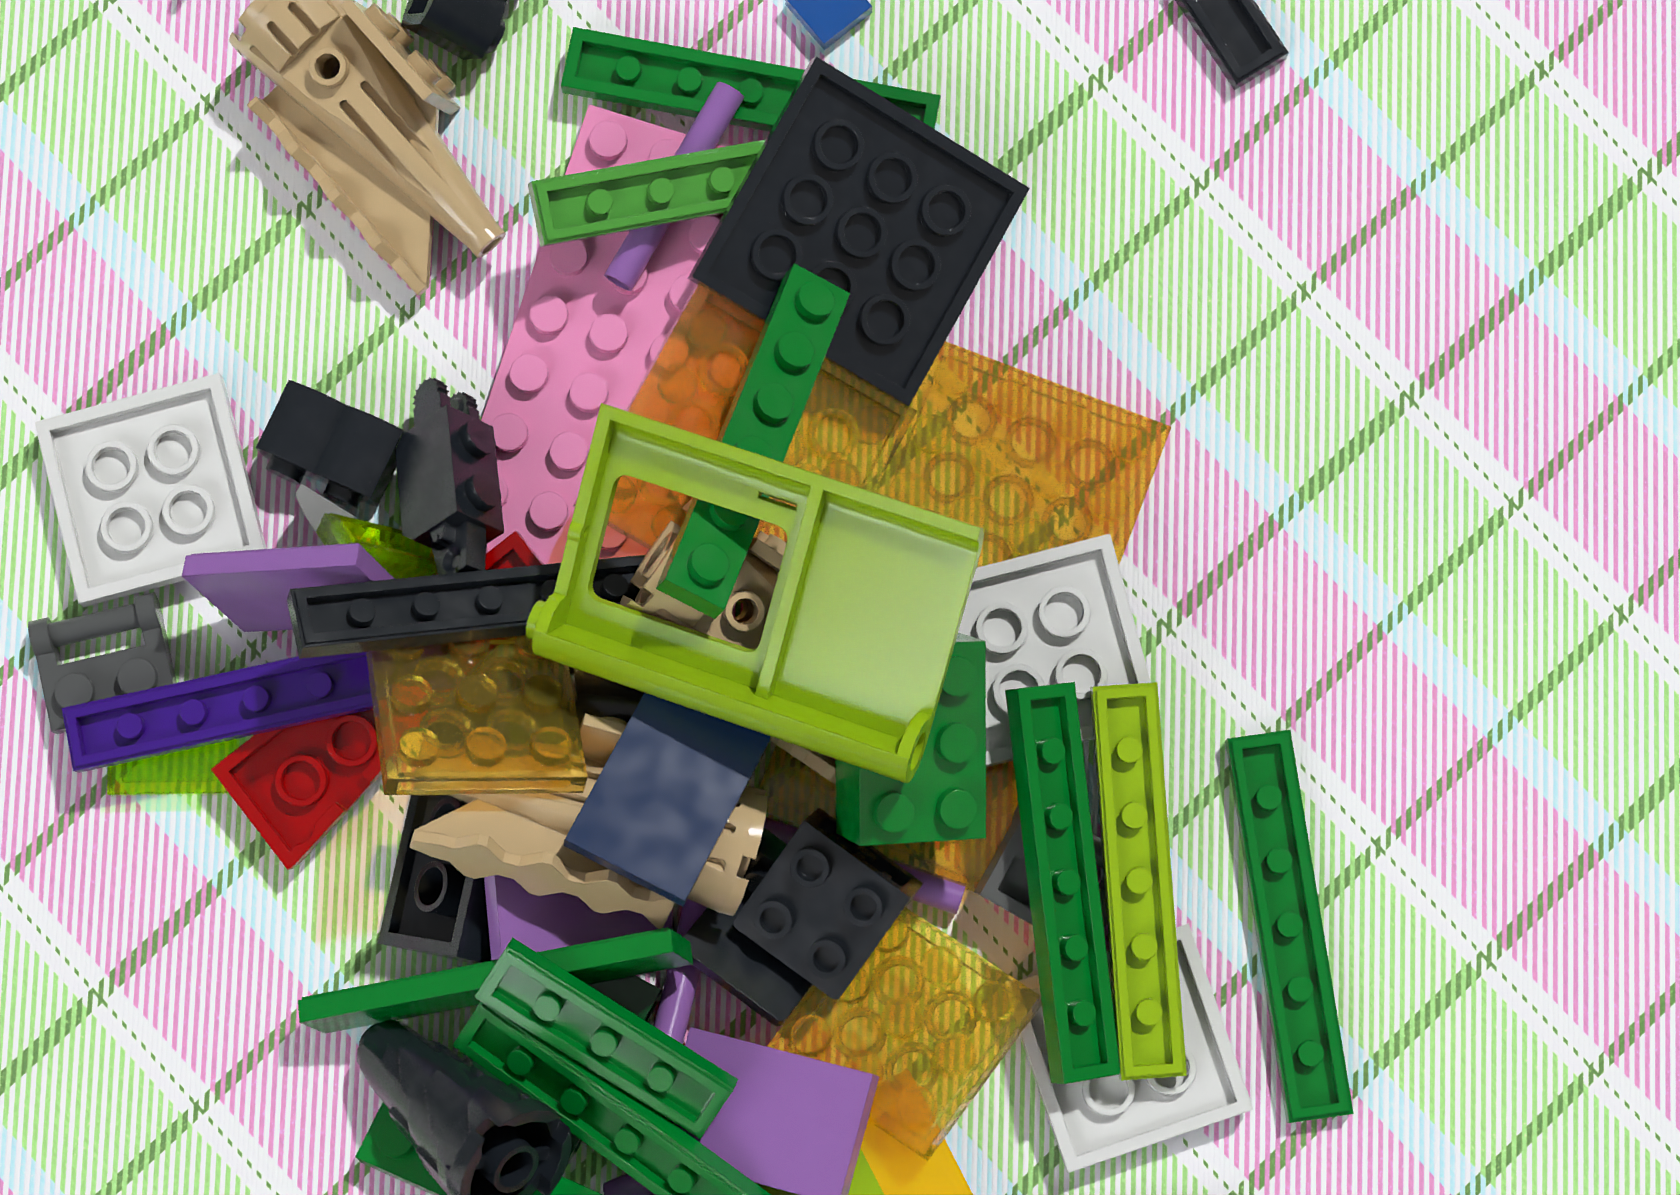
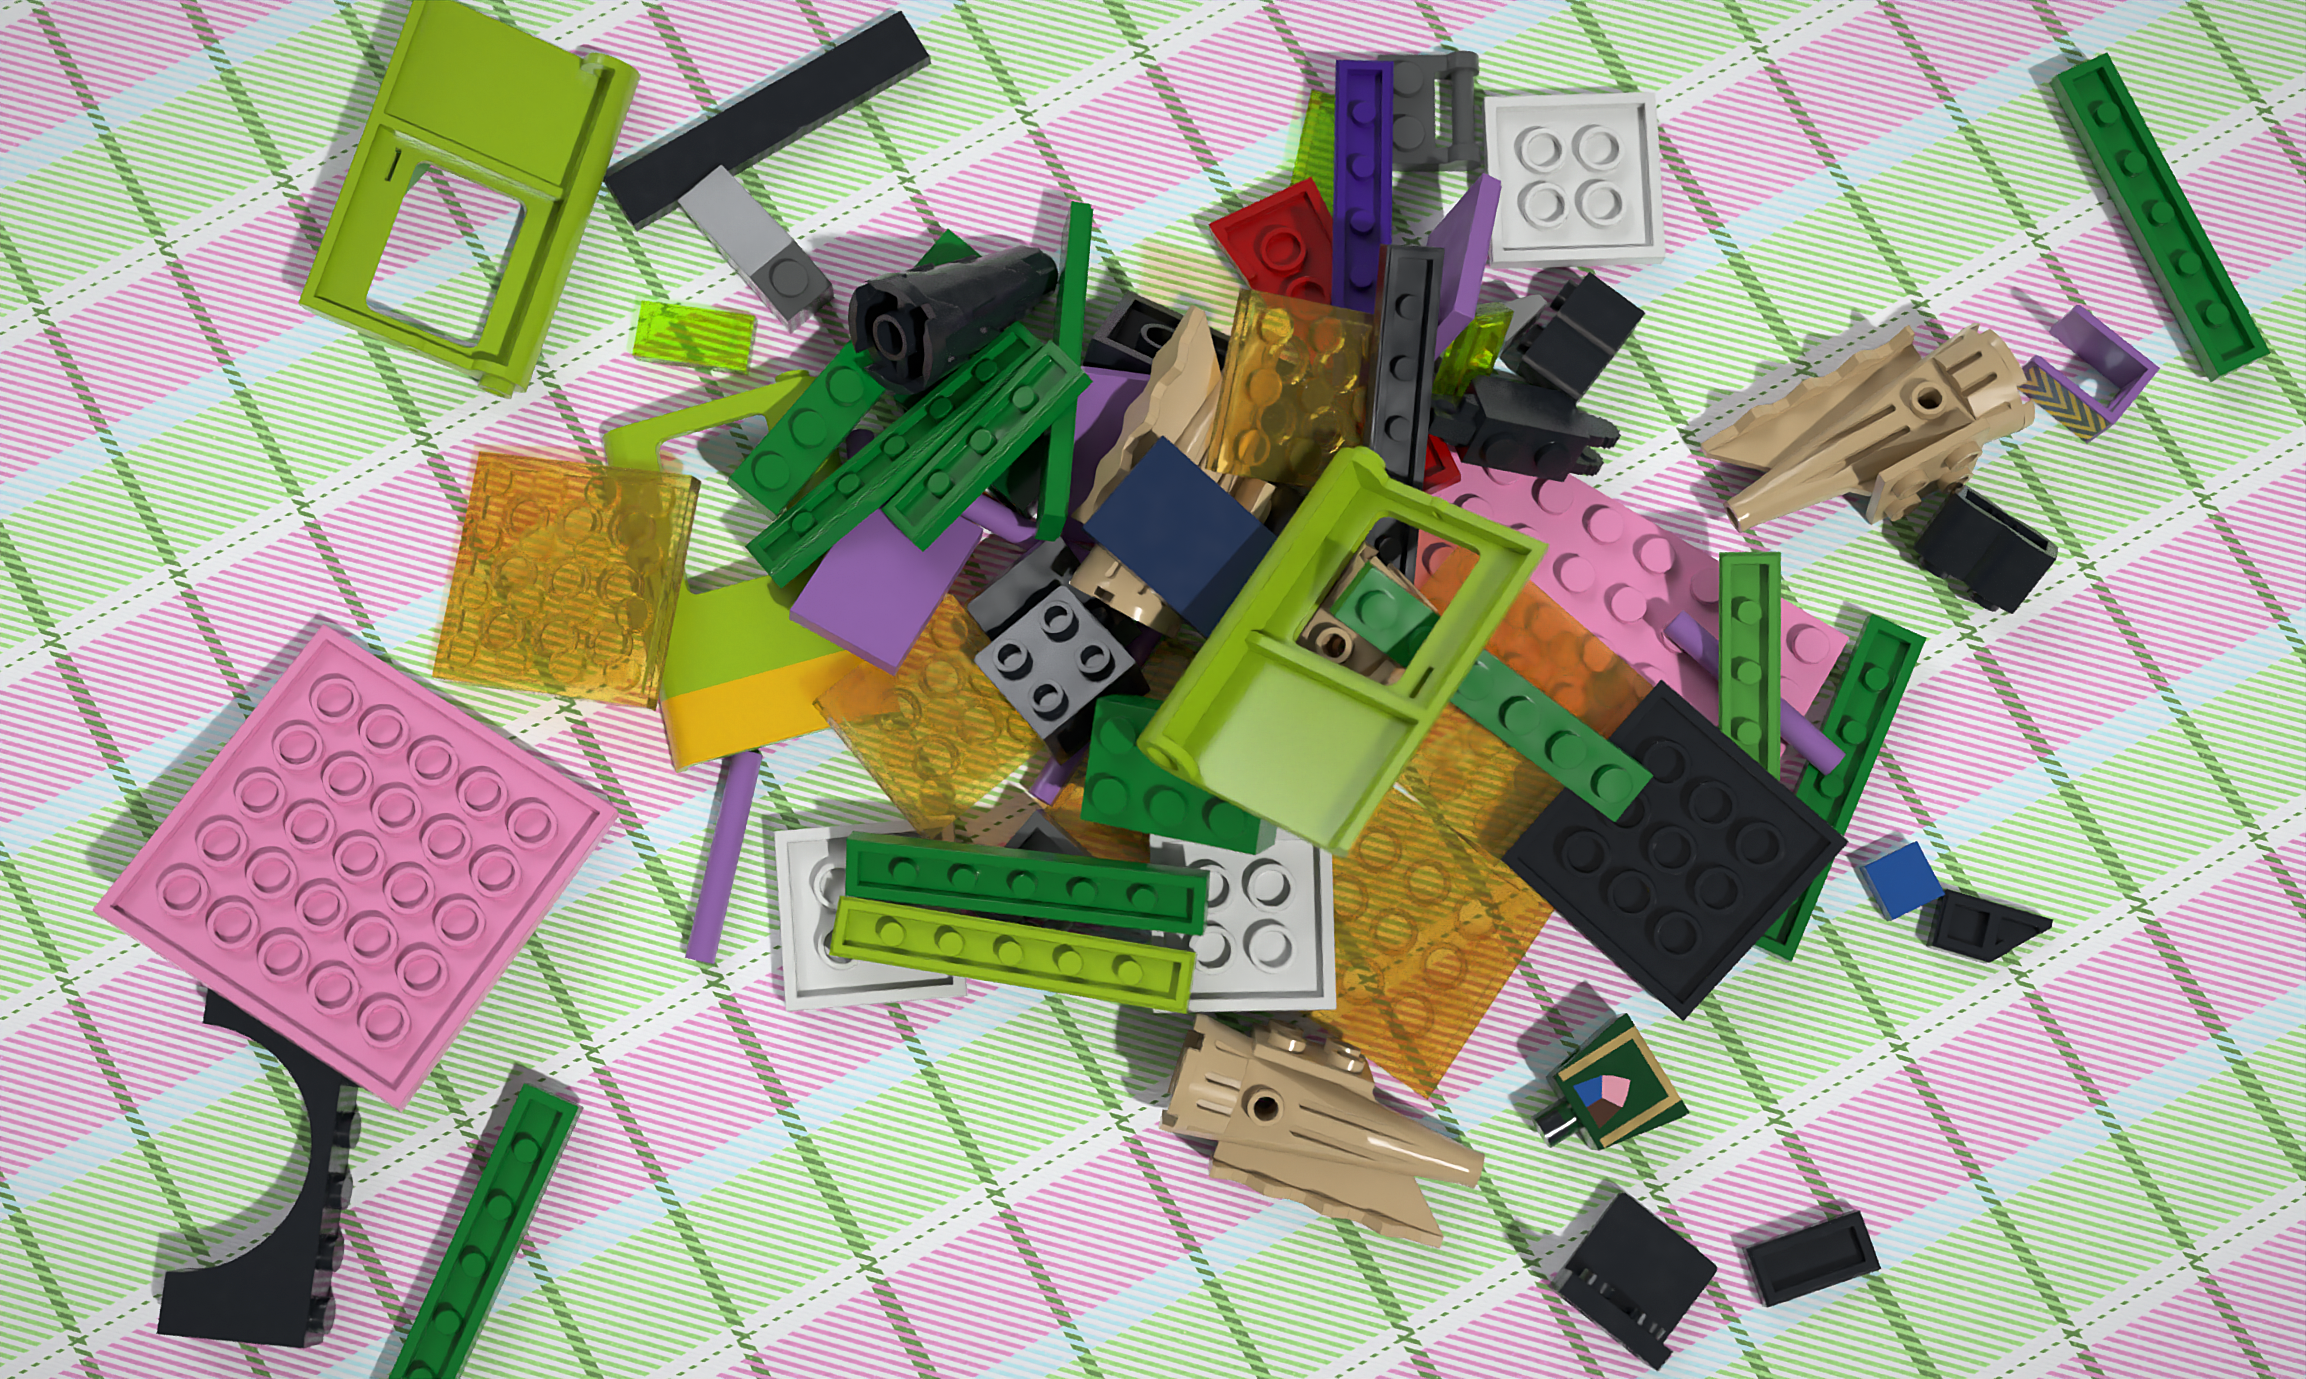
camera: 105 degrees right, 0 degrees up
(1115, 248) = (1609, 1090): none -> dark green torso
(1231, 539) = (1318, 1135): none -> tan piece
(1288, 926) = (943, 1089): green tile -> none
(1296, 186) = (1634, 1279): none -> black bracket

